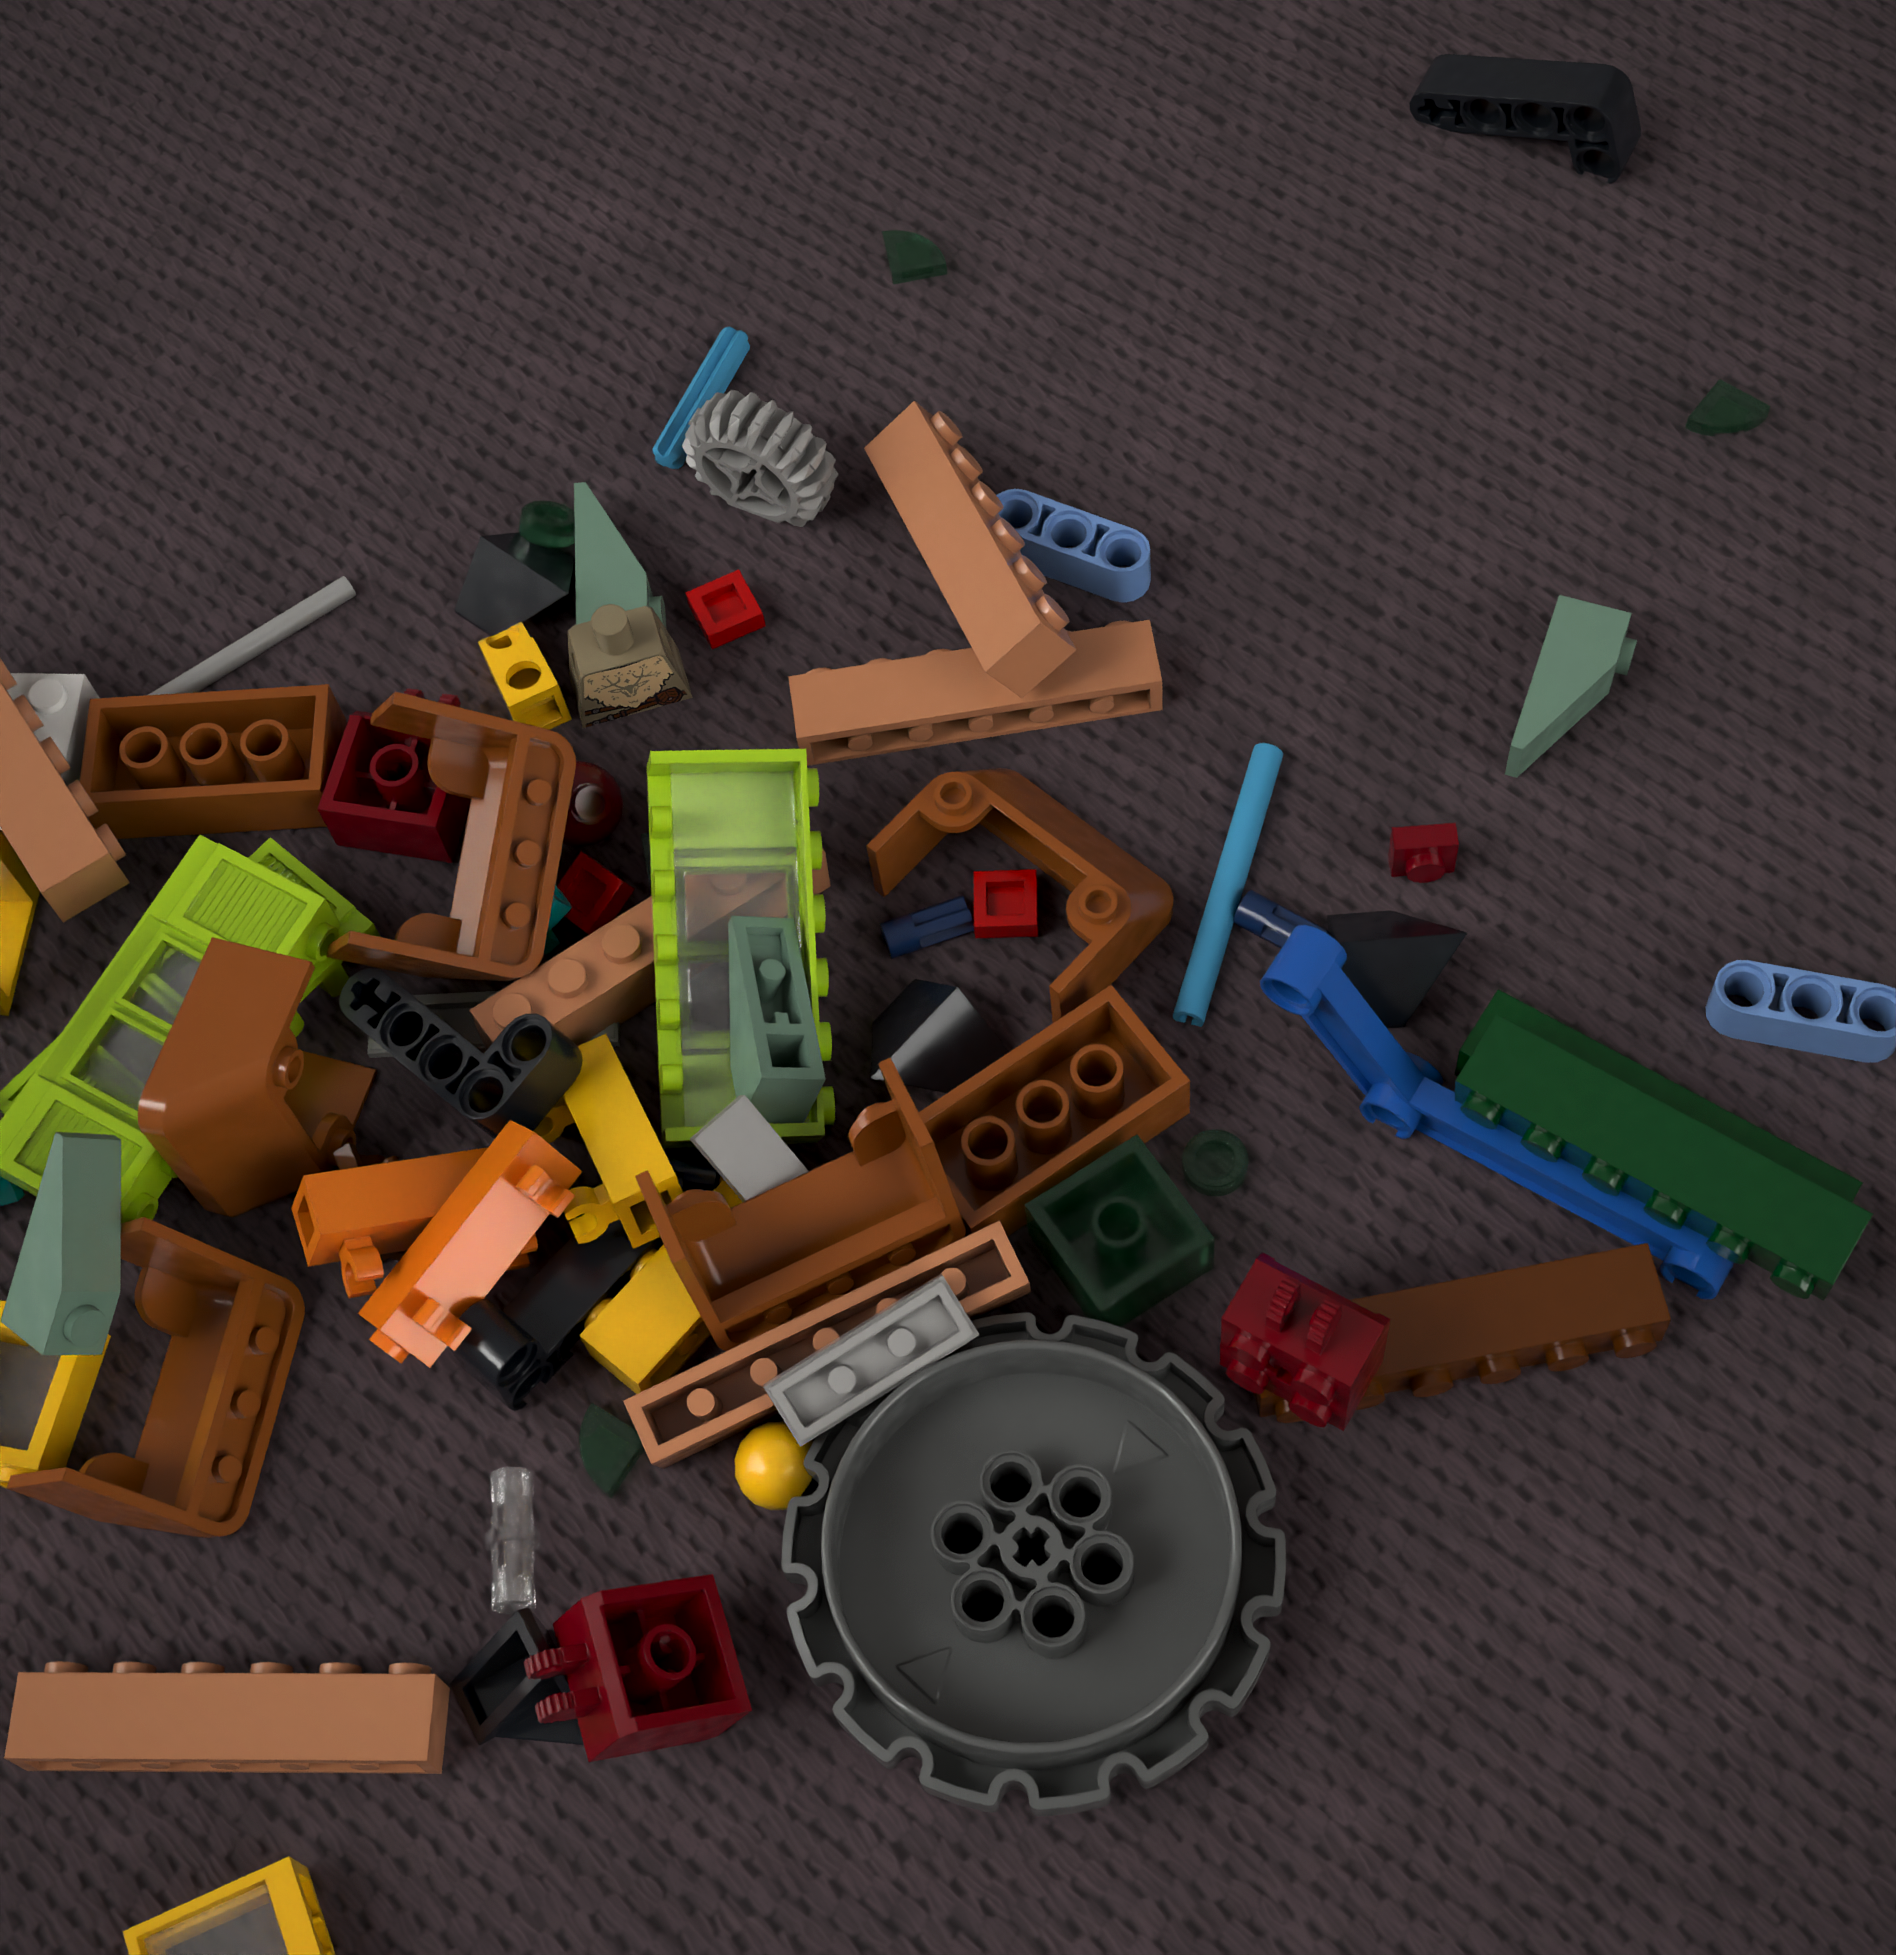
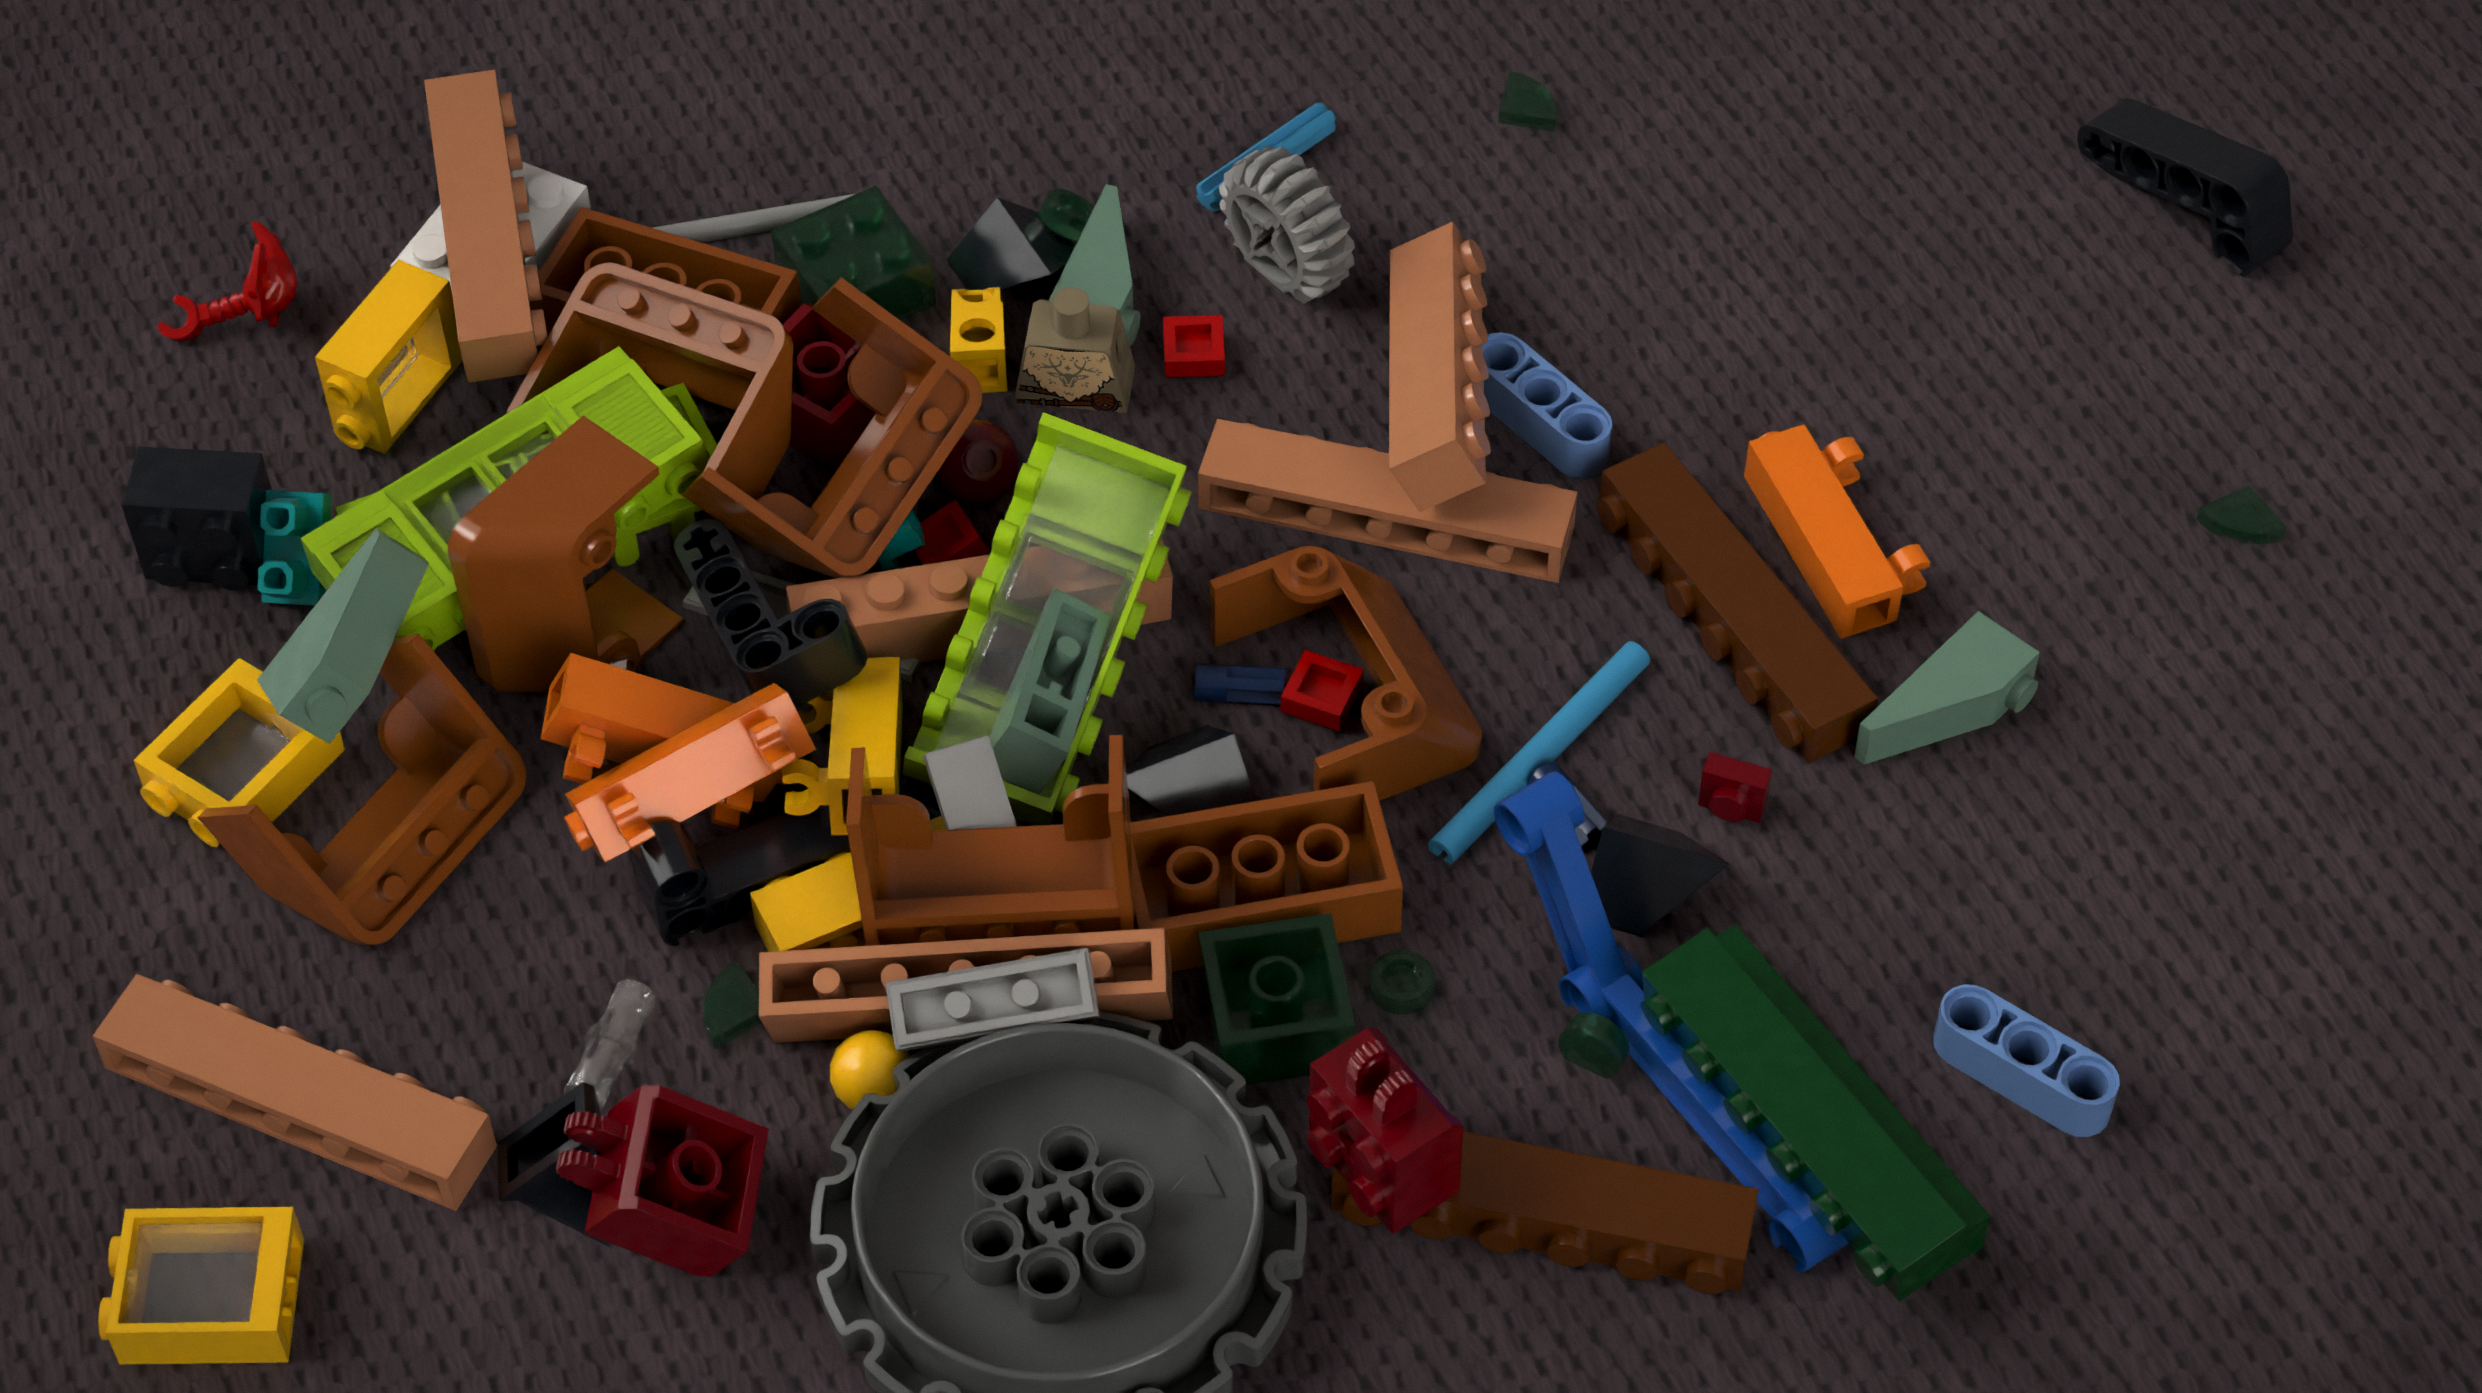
camera: 15 degrees right, 10 degrees down
(247, 800) = (679, 337): none -> dark orange windscreen
(373, 645) = (863, 245): none -> clear green brick
(1335, 669) = (1735, 603): none -> reddish brown brick
(1379, 567) = (1825, 532): none -> orange brick
(1421, 1154) = (1594, 1044): none -> clear green tile

